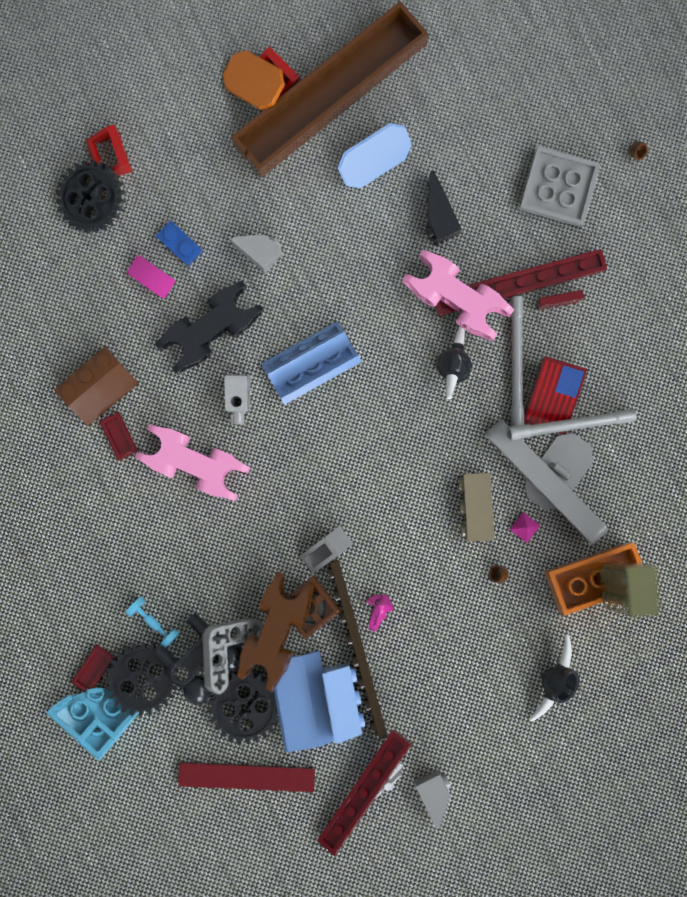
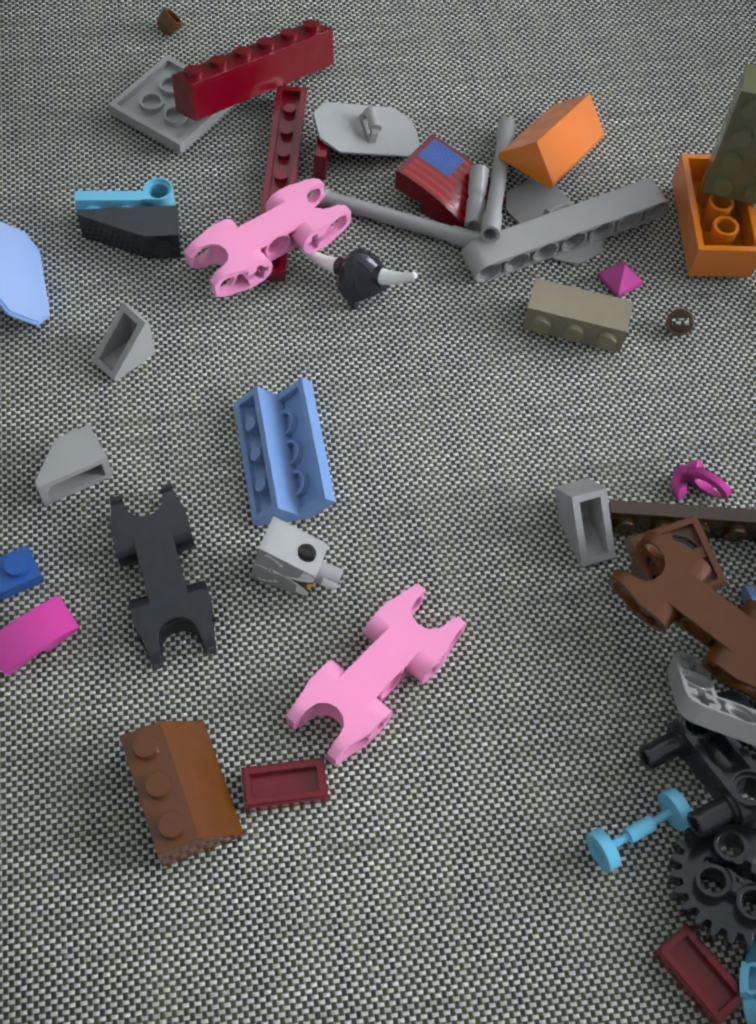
camera: 75 degrees left, 25 degrees down
(348, 242) = (124, 344): none -> light grey slope
(455, 197) = (155, 193): none -> medium azure plate
(550, 414) = (477, 192): none -> light grey piece
(581, 323) = (365, 130): none -> light grey shield
(600, 230) = (252, 69): none -> dark red brick
(622, 452) = (555, 141): none -> orange slope

